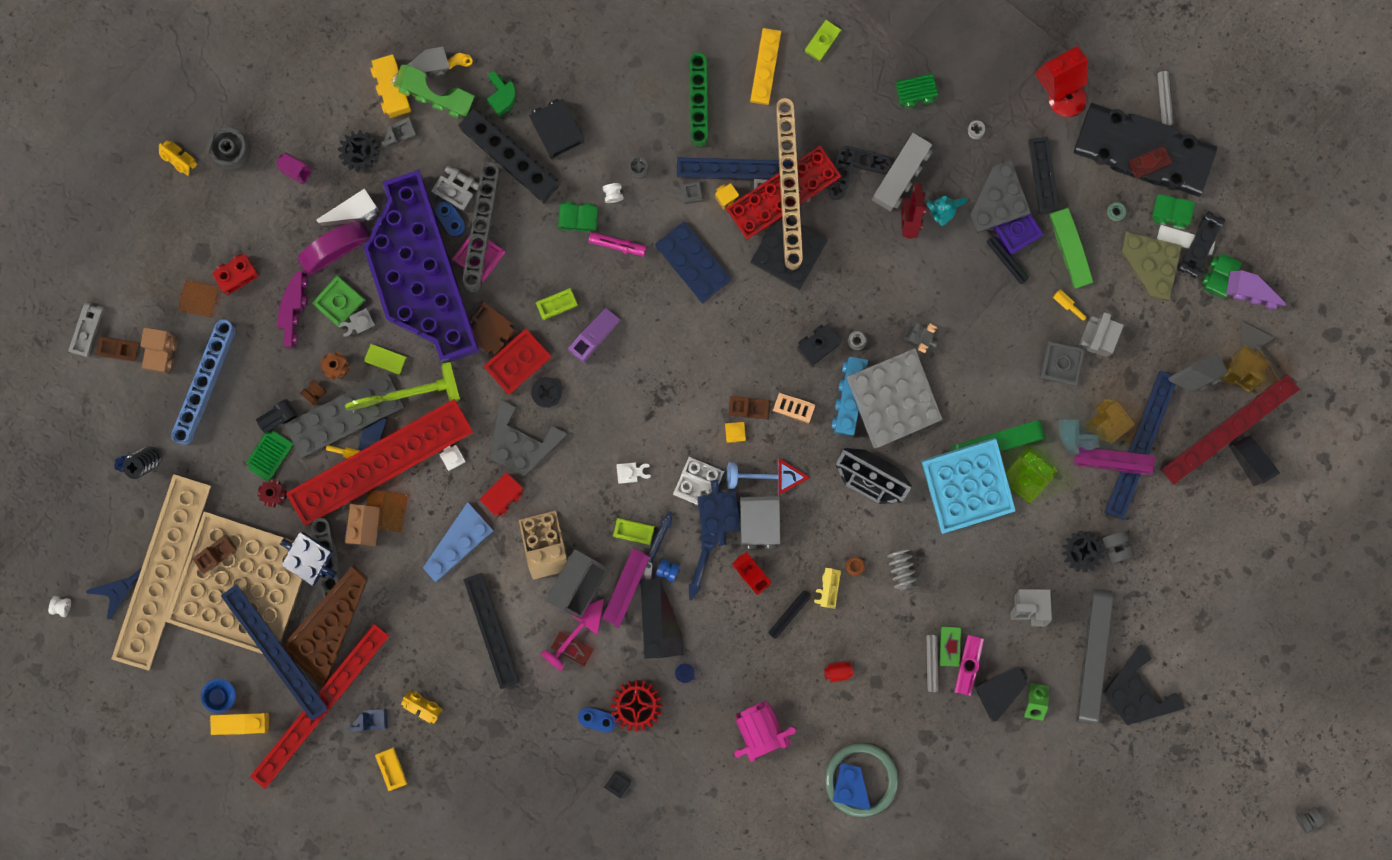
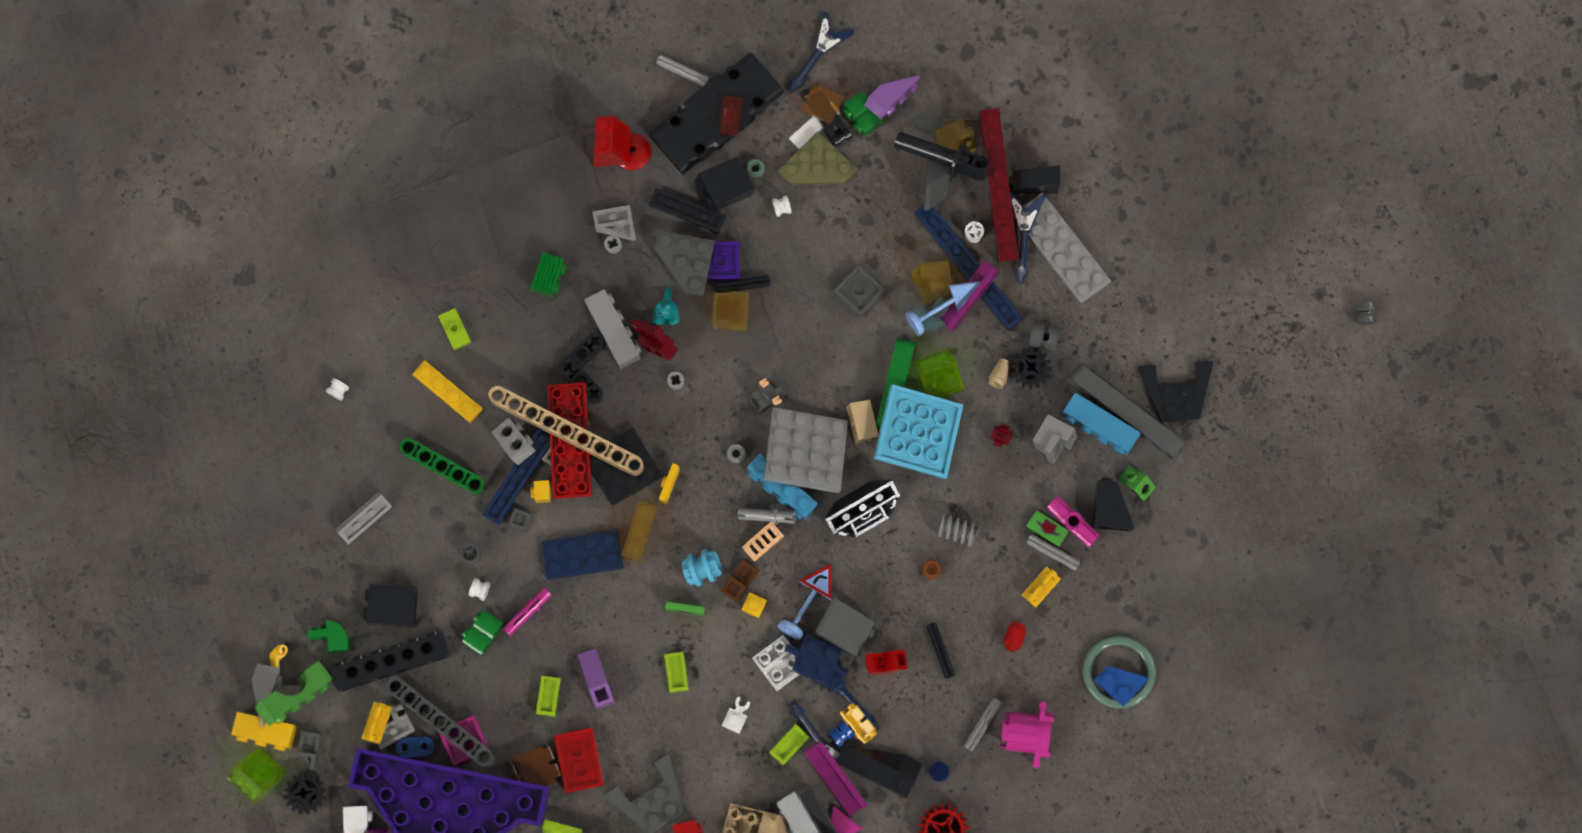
camera: 60 degrees left, 5 degrees down
(351, 102) = (256, 775): none -> clear neon green slope
(450, 174) = (376, 722): none -> yellow hinge
(547, 383) = (613, 745): black gear -> none
(616, 61) = (363, 518): none -> light grey plate
(640, 399) = (676, 672): none -> lime tile
(687, 572) = (863, 730): none -> yellow hinge
(697, 375) = (685, 608): none -> bright green tile
(740, 298) = (639, 532): none -> clear yellow brick
(740, 368) = (701, 567): none -> medium azure piece
(746, 687) = (982, 724): none -> light grey axle
(752, 150) = (514, 440): none -> light grey brick
(796, 298) = (668, 483): none -> yellow plate
(818, 345) = (721, 488): black brick -> none
(821, 404) = (774, 516): none -> light grey pin
(830, 588) = (935, 599): light yellow plate -> none
(885, 248) = (681, 379): none -> light grey bush
(896, 670) = (1041, 586): none -> yellow hinge
(948, 432) = (862, 421): none -> tan hinge
(977, 263) = (730, 311): none -> clear yellow plate
(996, 120) = (615, 222): none -> light grey wing
(1008, 559) = (1001, 435): none -> dark red gear
(1061, 527) = (999, 375): none -> tan cone
(1066, 302) = (809, 256): yellow axle -> none
(1069, 641) = (1101, 424): none -> dark azure brick
(1071, 247) = (764, 224): bright green slope -> none
(1085, 192) = (724, 184): none -> black brick
(1096, 253) = (781, 206): none -> white wheel
(1101, 335) = (854, 244): light grey plate -> none
(1110, 452) = (960, 294): none -> light blue piece
(1172, 211) = (783, 122): green brick -> none
(1177, 430) = (974, 227): none -> white wheel
(1206, 517) = (1066, 253): none -> light grey plate
(1209, 235) = (822, 103): none -> clear orange piece
(1211, 471) = (1025, 220): none -> piece
(1229, 383) = (959, 161): none -> black piece
(1266, 206) = (826, 41): none -> piece

